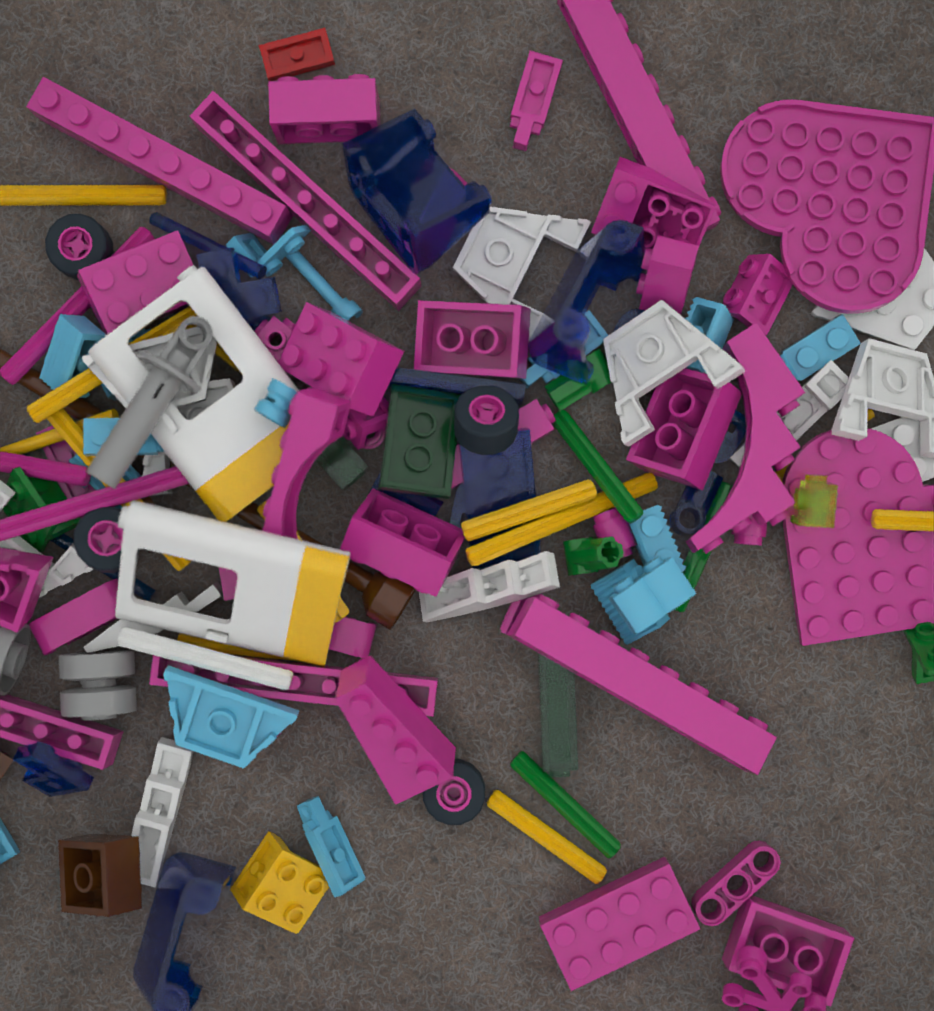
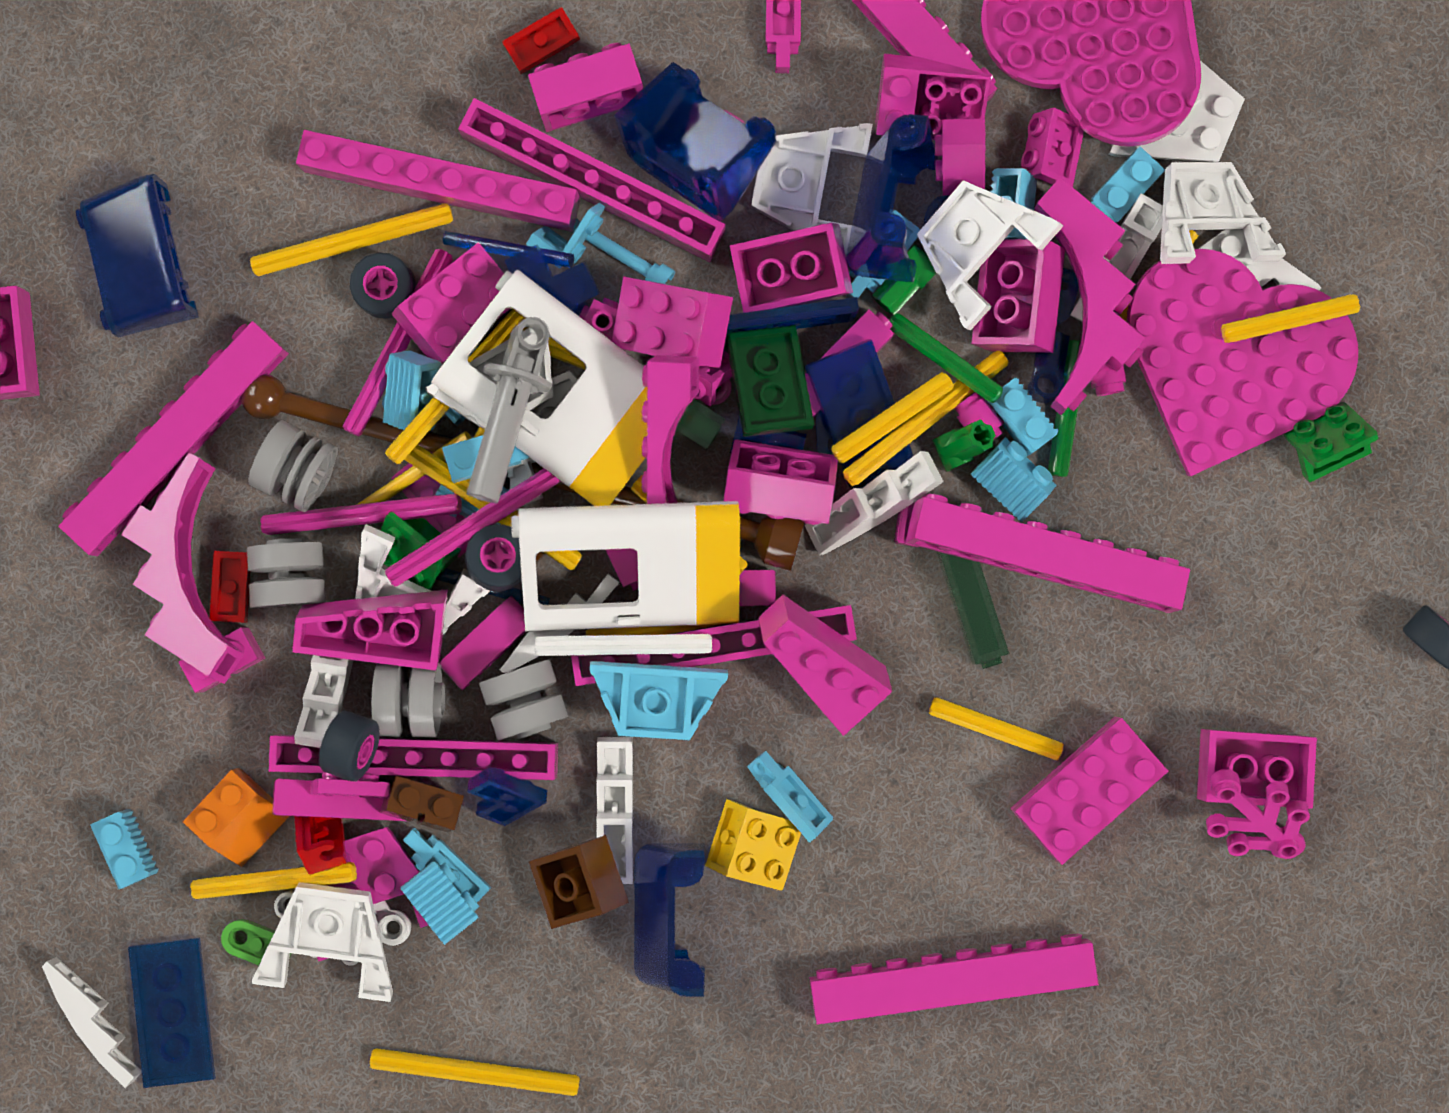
camera: 25 degrees left, 0 degrees up
(276, 403) = (627, 379): medium azure wheel -> none
(457, 810) = (905, 725): black wheel -> none
(486, 420) = (828, 341): black wheel -> none
(565, 804) = (1005, 693): green axle -> none
(651, 594) = (1033, 463): medium azure brick -> none
(731, 900) = (1204, 712): dark pink beam -> none
(815, 502) = (1164, 332): clear neon green brick -> none

